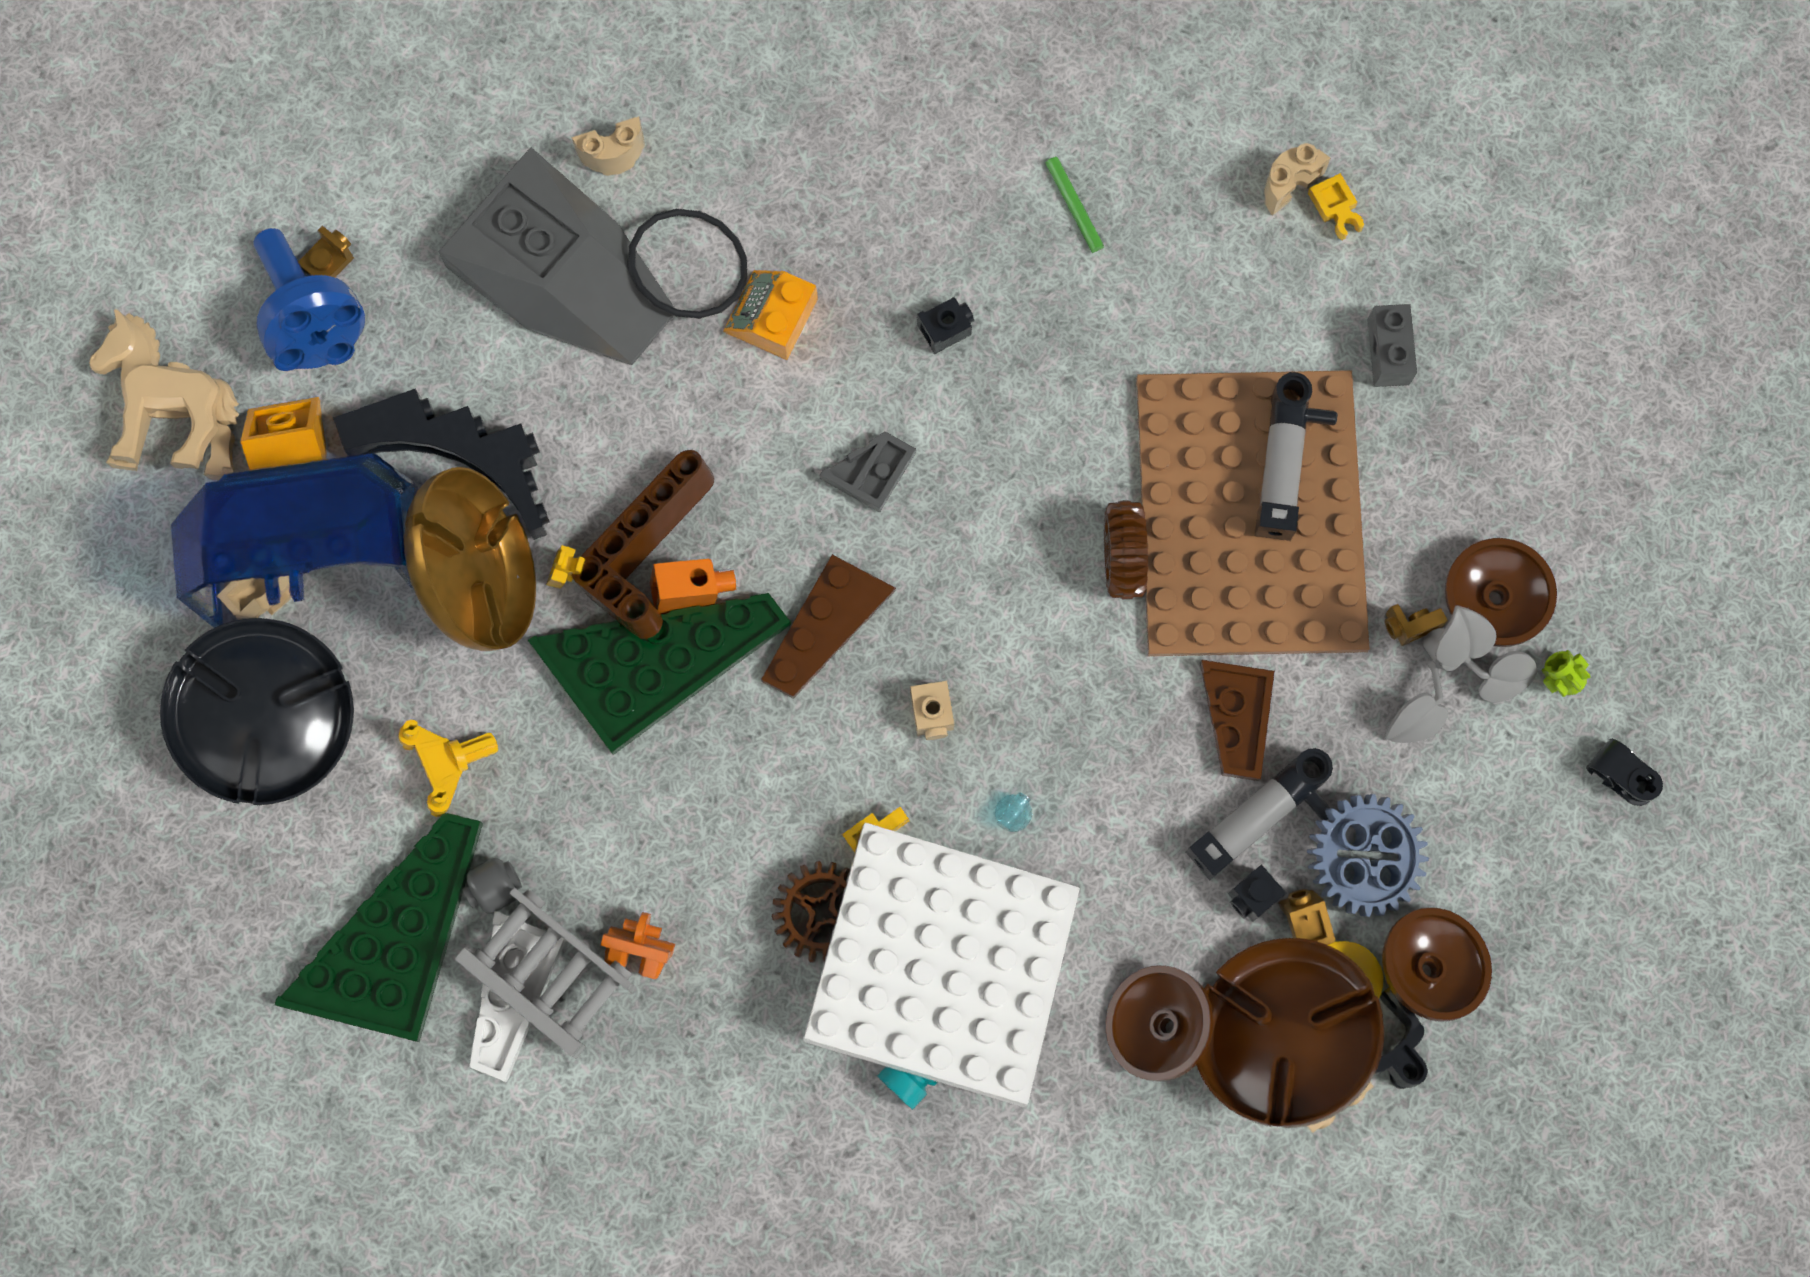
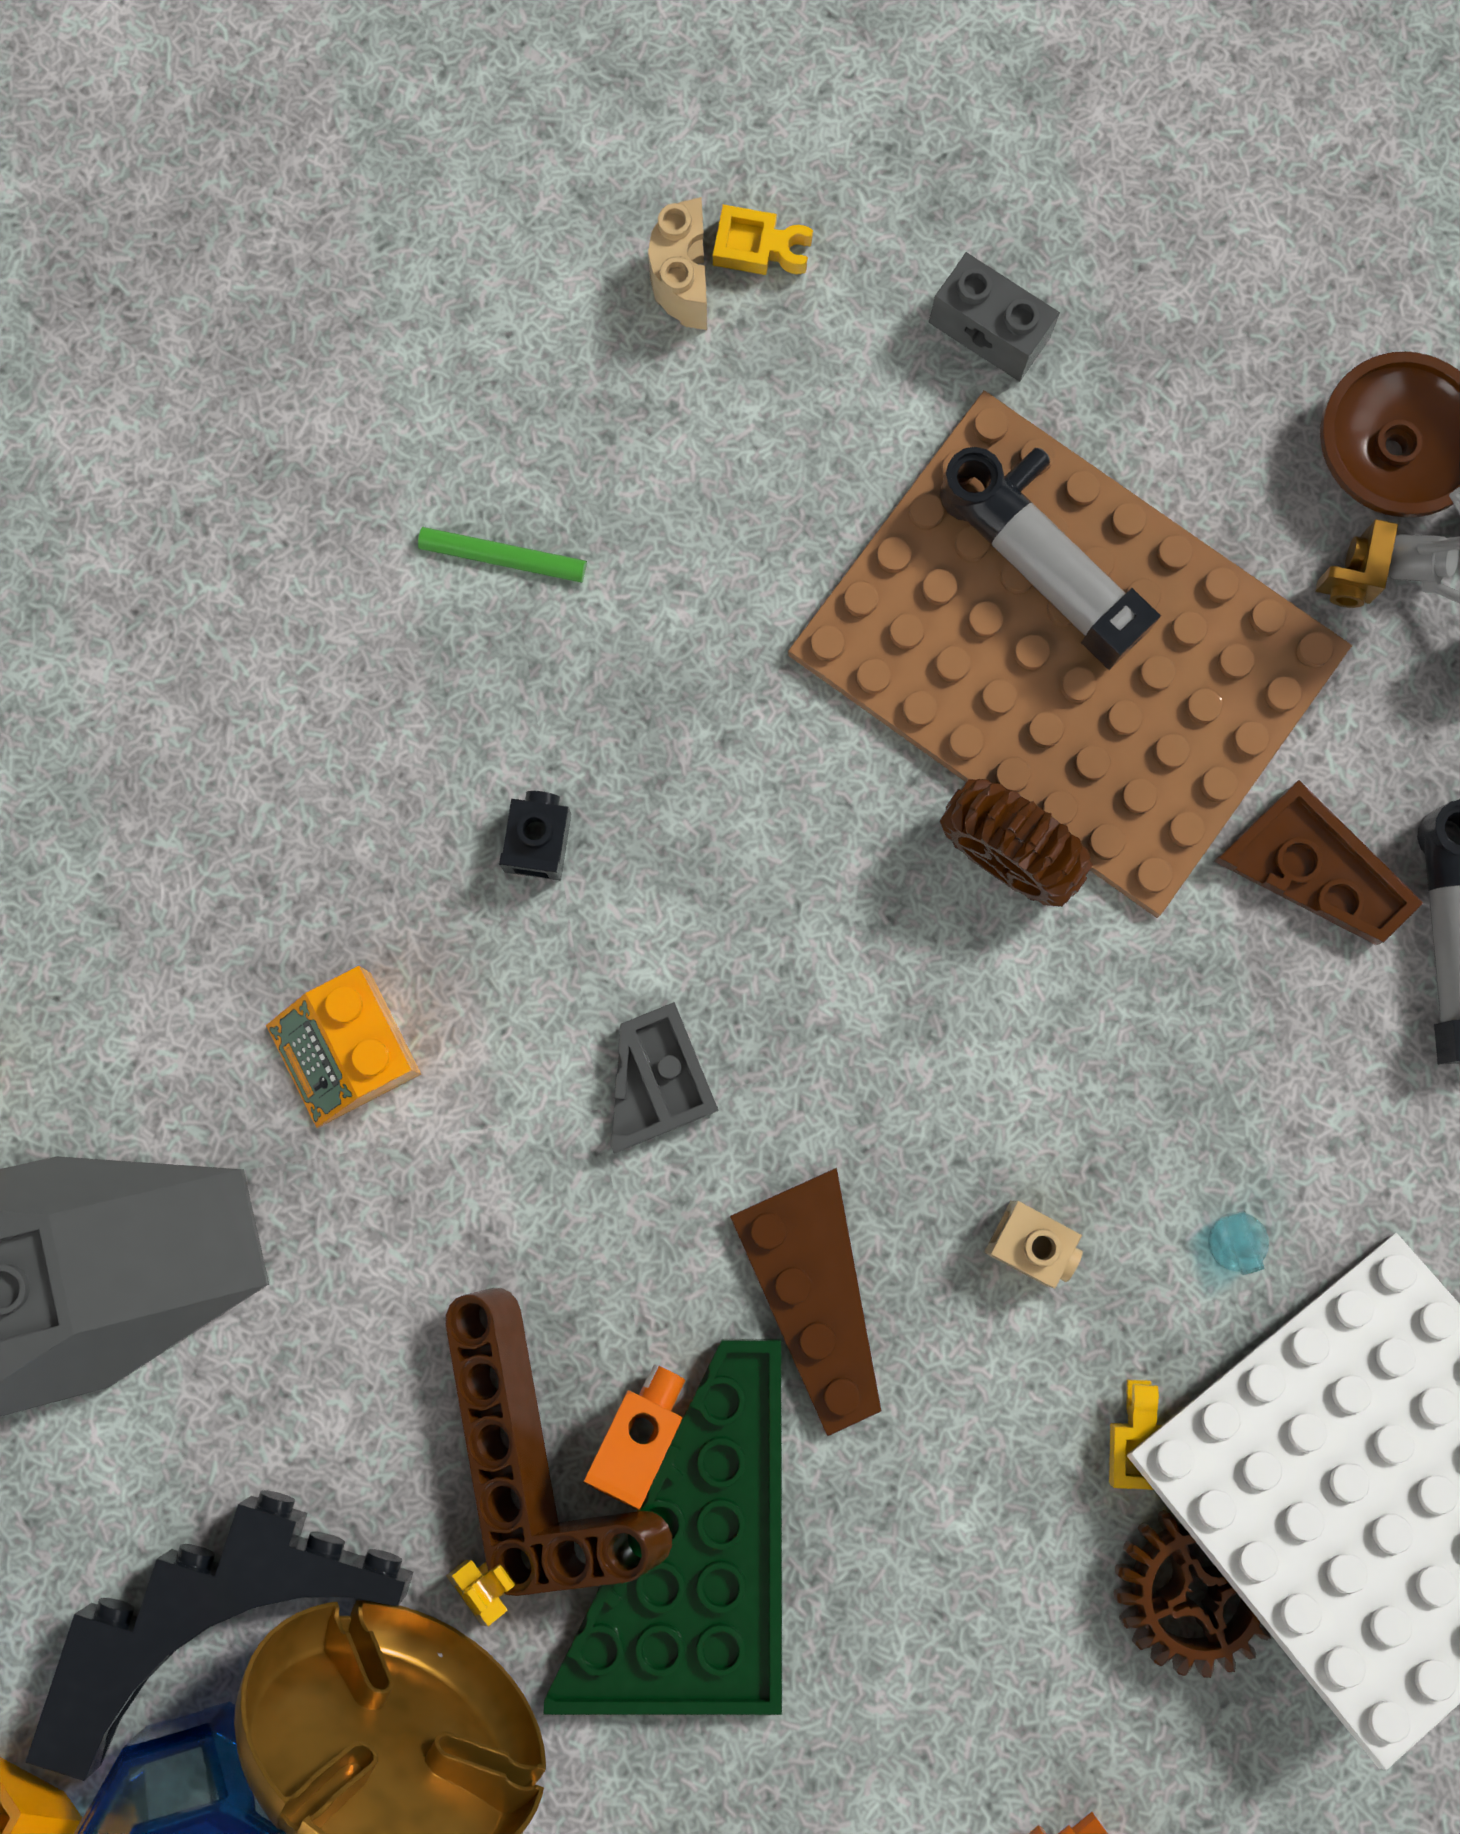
camera: 55 degrees left, 5 degrees up
(686, 313) = (232, 1183): black piece -> none

